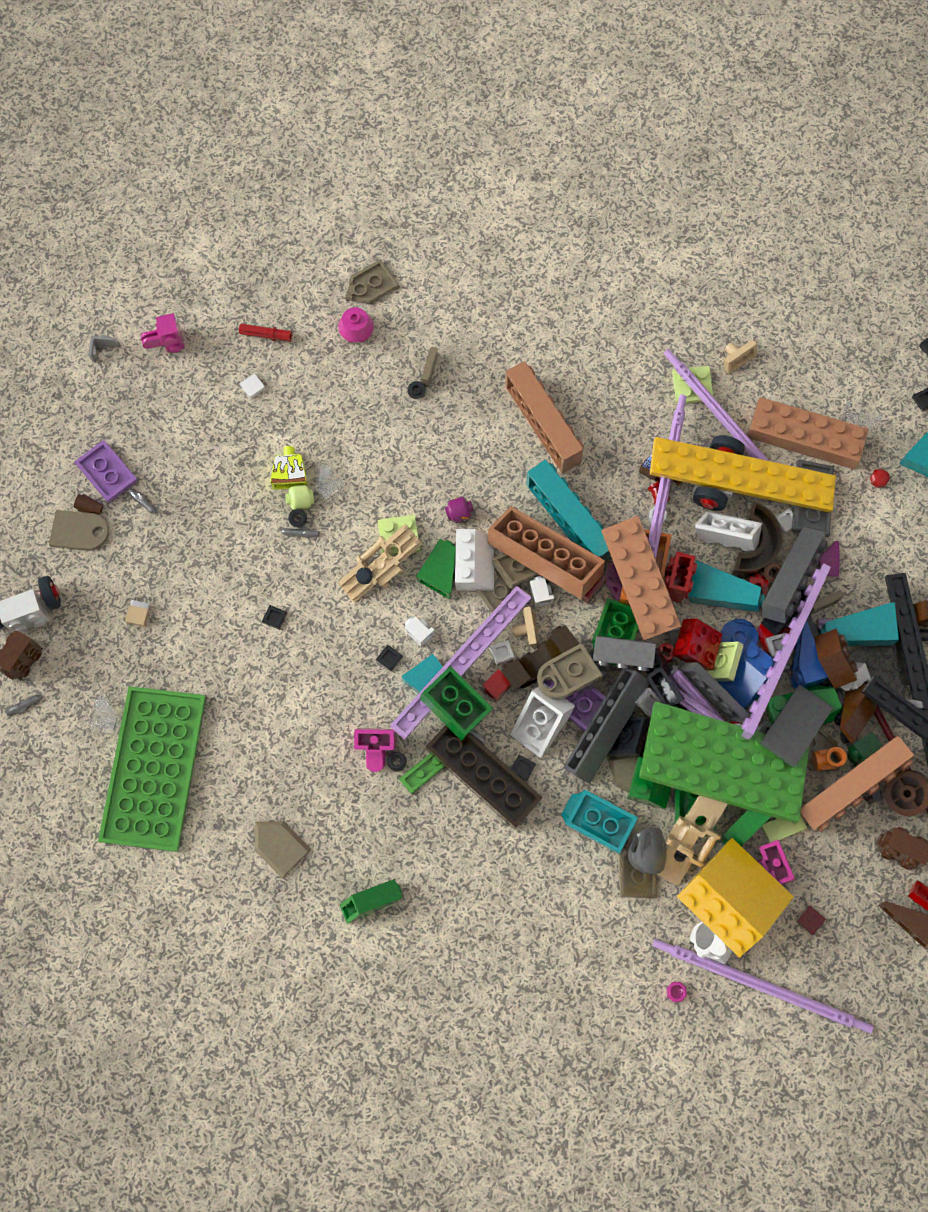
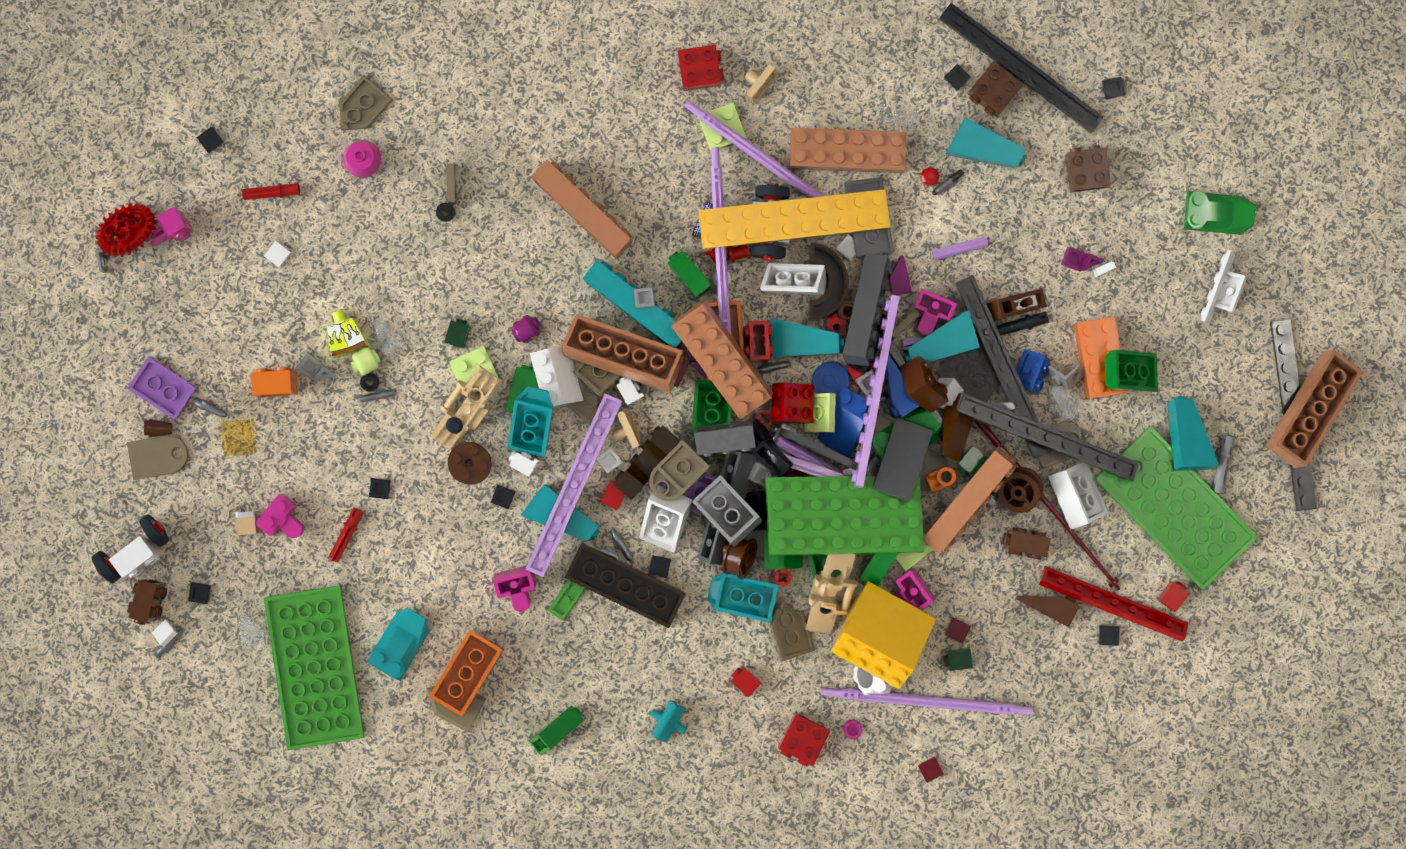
camera: 20 degrees left, 15 degrees up
(23, 693) = (164, 633): none -> white tile
(70, 666) = (199, 593): none -> black tile
(124, 326) = (128, 233): none -> red gear
(158, 534) = (237, 437): none -> clear yellow piece
(170, 615) = (279, 517): none -> dark pink brick
(209, 491) = (274, 383): none -> orange brick
(227, 277) = (210, 139): none -> black tile
(234, 644) = (345, 535): none -> red axle
(244, 769) = (400, 643): none -> teal slope
(250, 493) = (314, 369): none -> light grey slope
(299, 815) = (466, 673): none -> orange brick
(360, 608) = (458, 463): none -> reddish brown wheel
(392, 757) = (536, 599): black plate -> none
(393, 496) = (457, 333): none -> dark green brick
(438, 590) = (531, 422): none -> teal slope
(455, 703) = (581, 532): green brick -> none
(487, 926) = (668, 721): none -> teal pin
(489, 735) = (620, 544): none -> flat silver piece
(577, 907) = (745, 681): none -> red brick
(581, 503) = (644, 297): none -> light grey tile
(606, 776) = (740, 558): none -> reddish brown wheel
(608, 724) = (727, 511): none -> light grey slope
(622, 987) = (803, 740): none -> red brick
(628, 500) = (689, 274): none -> green slope
(645, 806) = (788, 577): none -> red bush
(650, 852) = (797, 615): dark grey helmet -> none
(680, 496) = (738, 252): none -> red bush
(682, 608) = (770, 366): none -> flat silver piece
(687, 328) = (700, 67): none -> red brick
(748, 1060) = (930, 769): none -> dark red tile
(805, 950) = (958, 659): none -> dark green brick
(857, 595) = (933, 308): none -> dark pink brick
(895, 549) = (960, 248): none -> lavender axle
(897, 488) = (949, 182): none -> piece

